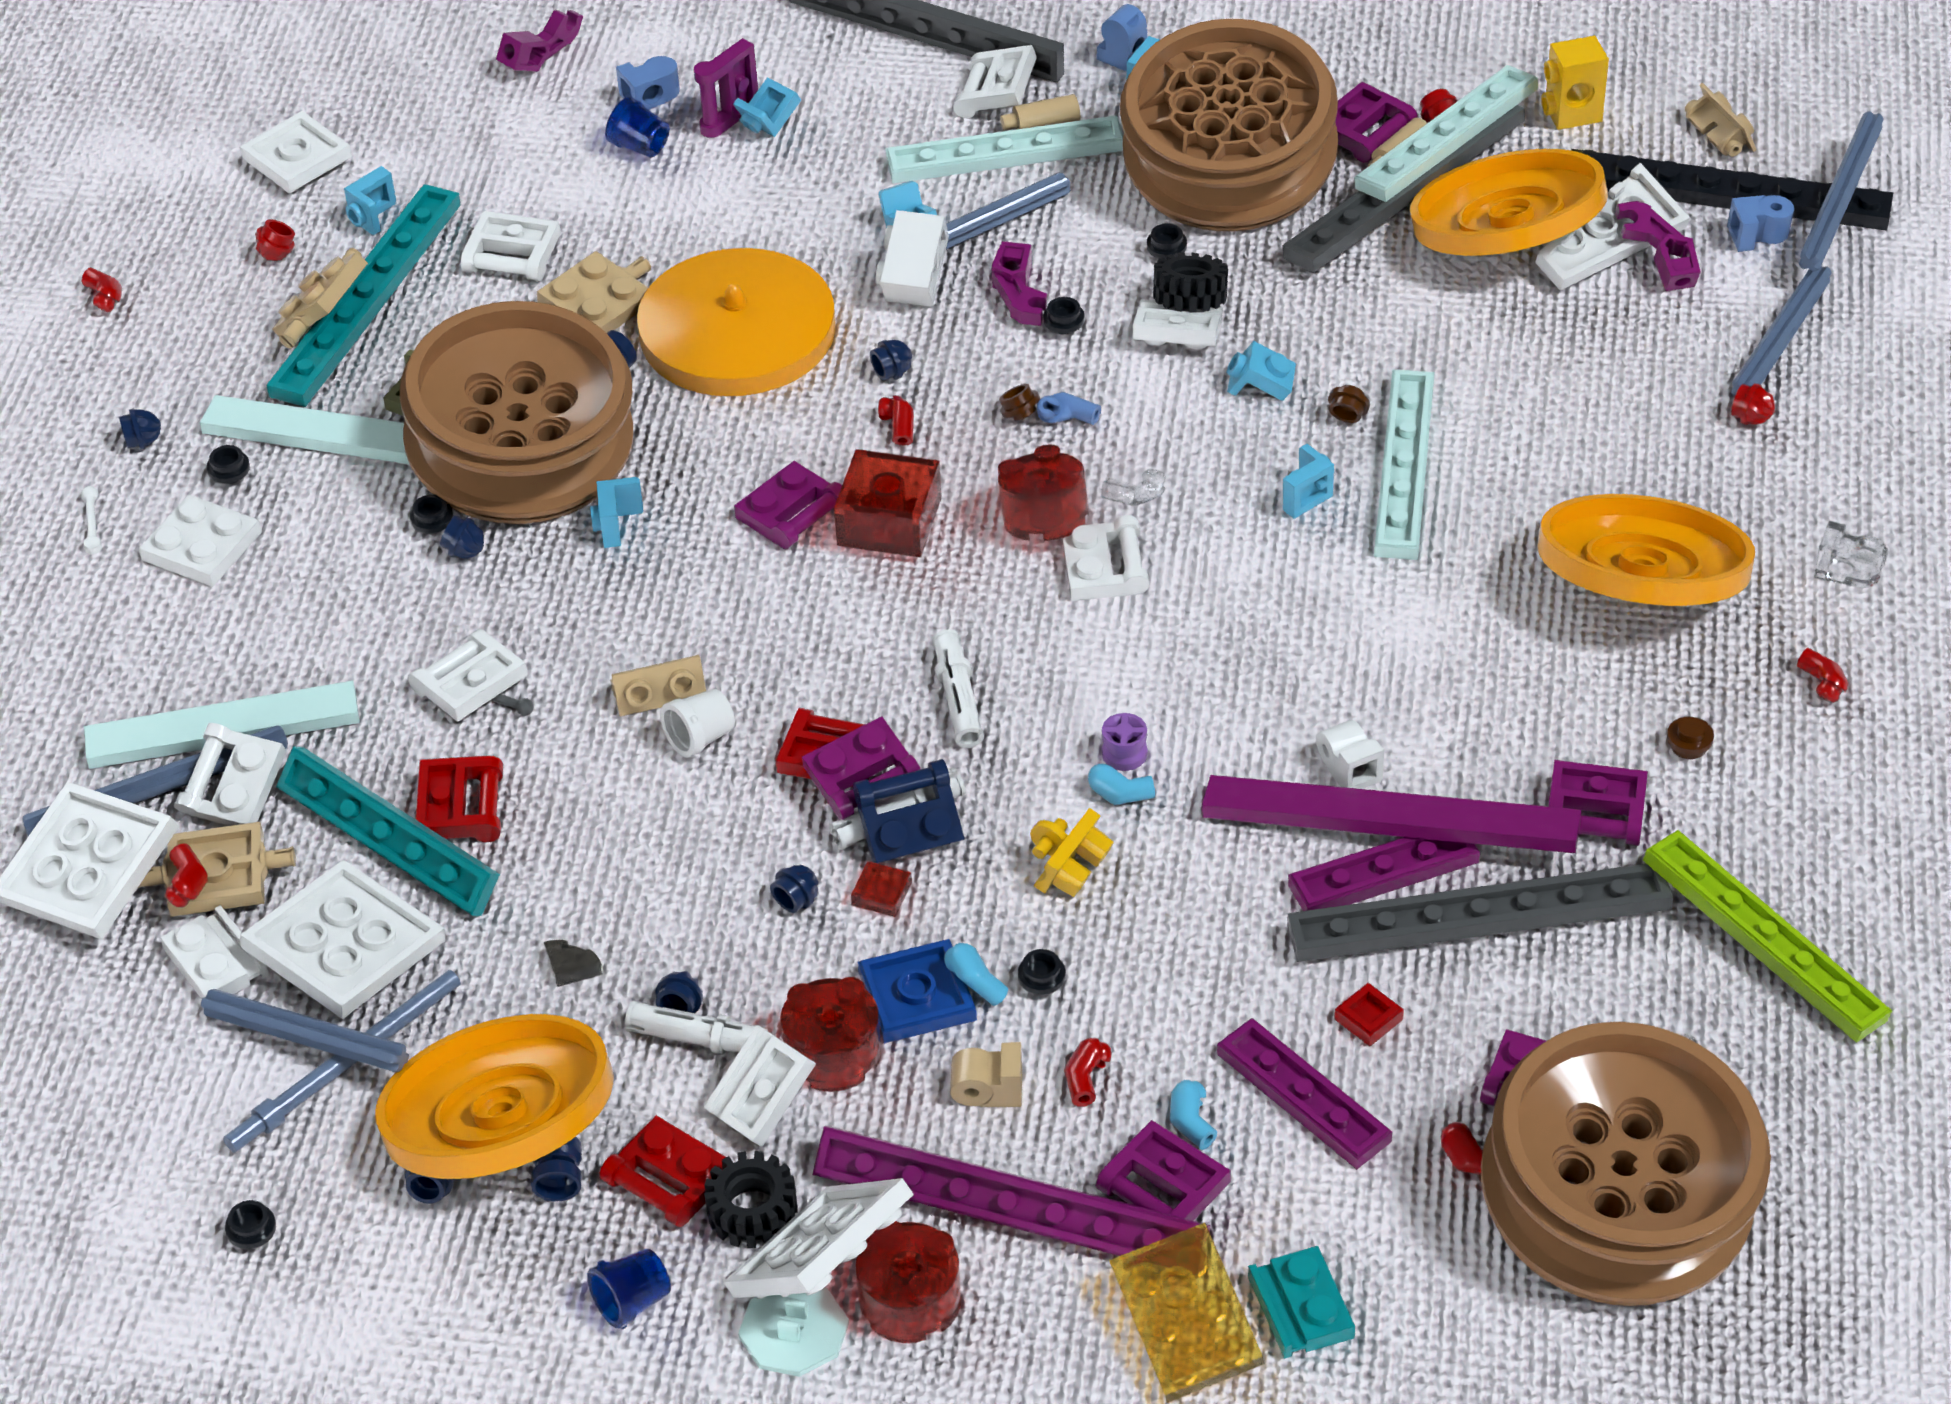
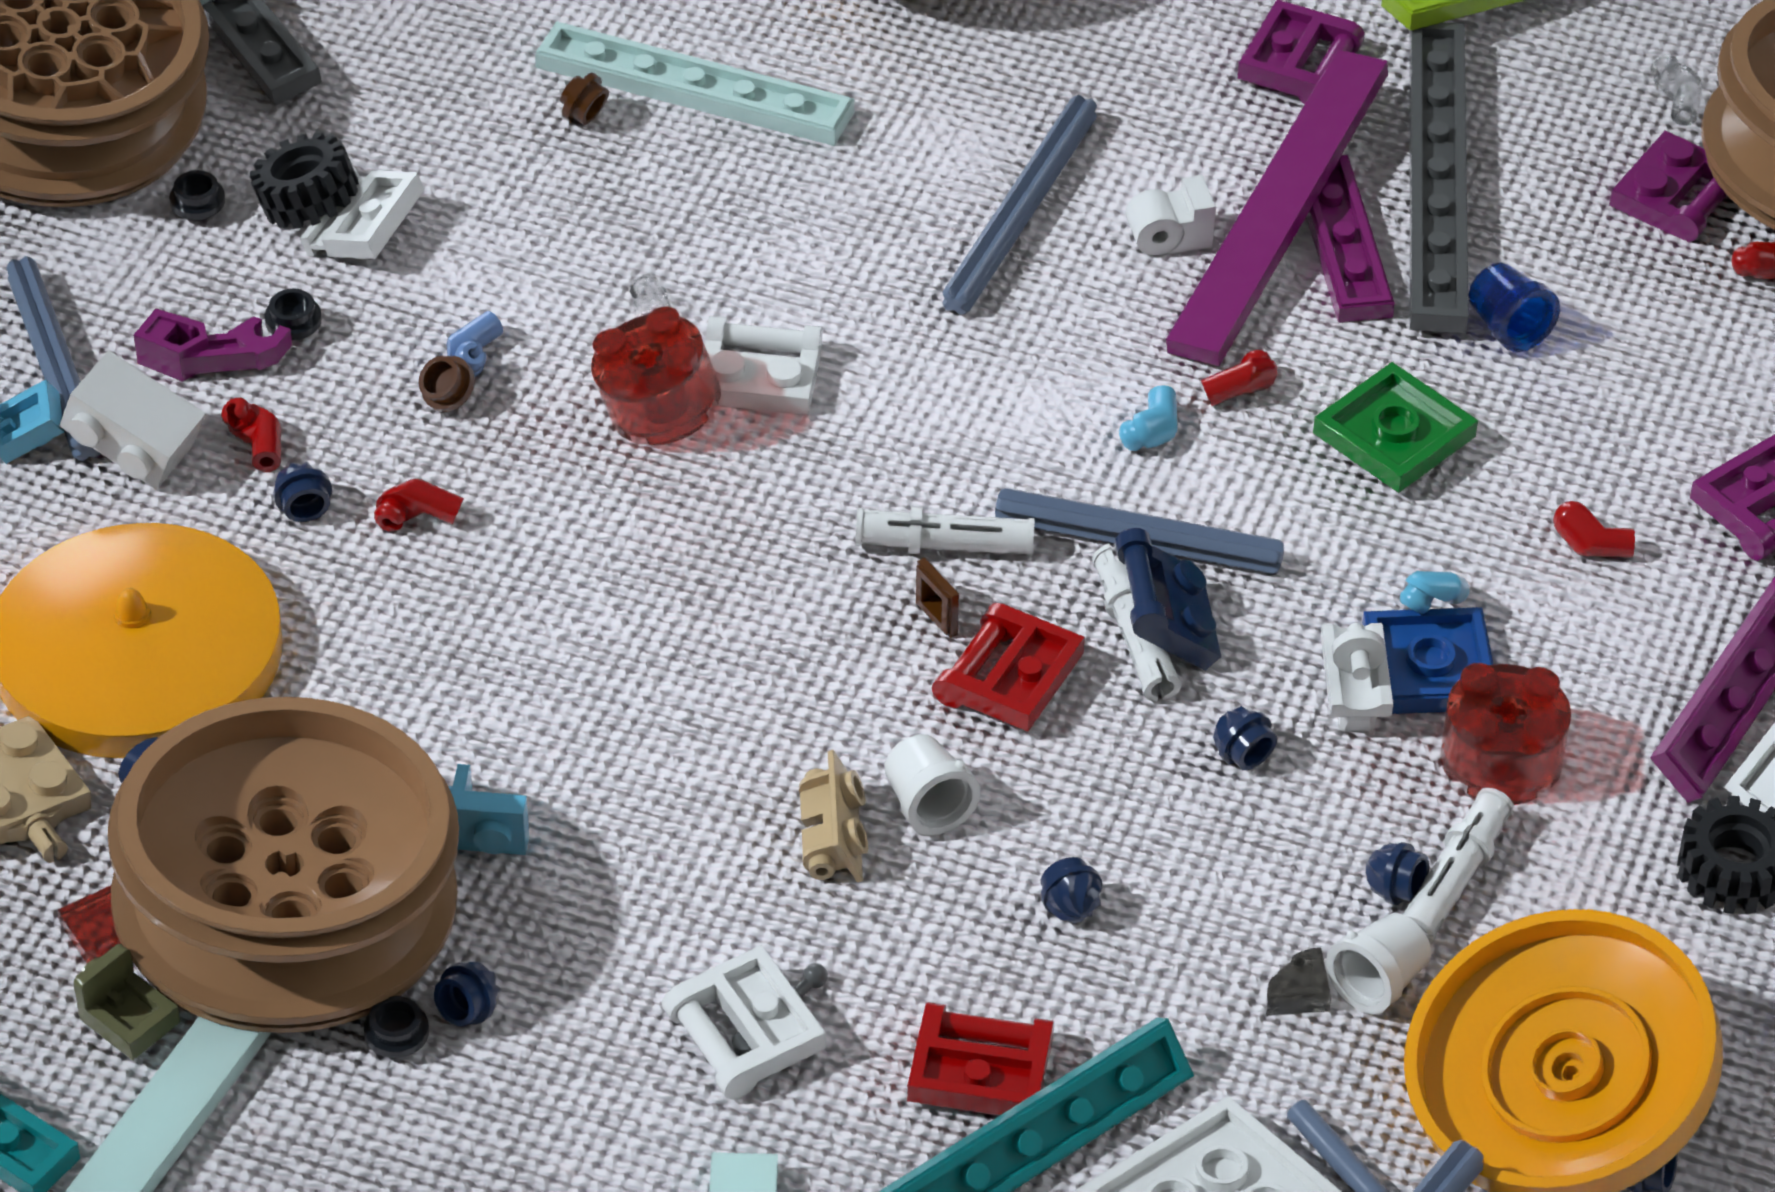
camera: 80 degrees left, 0 degrees up
(585, 993) = (1378, 962): none -> white piece
(620, 817) = (1071, 889): none -> dark blue plate
(669, 1157) = (1680, 907): red plate -> none
(759, 1085) = (1578, 808): white plate -> none
(782, 498) = (520, 650): magenta plate -> none
(855, 759) = (1064, 632): magenta plate -> none
(868, 934) = (1356, 675): none -> white hips
(881, 889) = (1255, 665): clear red tile -> none
(888, 503) = (605, 526): clear red brick -> none
(889, 695) = (937, 597): none -> reddish brown slope
(947, 330) = (256, 428): none -> red arm
(988, 1077) = (1594, 604): tan leg -> none
(998, 799) = (1167, 534): none -> sand blue axle
(1041, 972) = (1435, 541): black plate -> none
(1061, 868) = (1261, 479): yellow hips -> none
(1124, 741) = (1089, 400): medium lavender wheel -> none
(1159, 927) = (1395, 427): none -> green plate
(1185, 830) = (1252, 375): none -> red arm
(1185, 1113) = (1671, 461): medium azure arm -> none
(1262, 369) = (486, 161): medium azure bracket -> none
(1304, 1093) = (1655, 367): magenta tile -> none
(1308, 484) = (710, 152): medium azure bracket -> none
(1322, 977) = (1514, 306): none -> clear blue piece
(1341, 667) = (1019, 205): none -> sand blue axle
(1369, 1014) = (1571, 290): red tile -> none

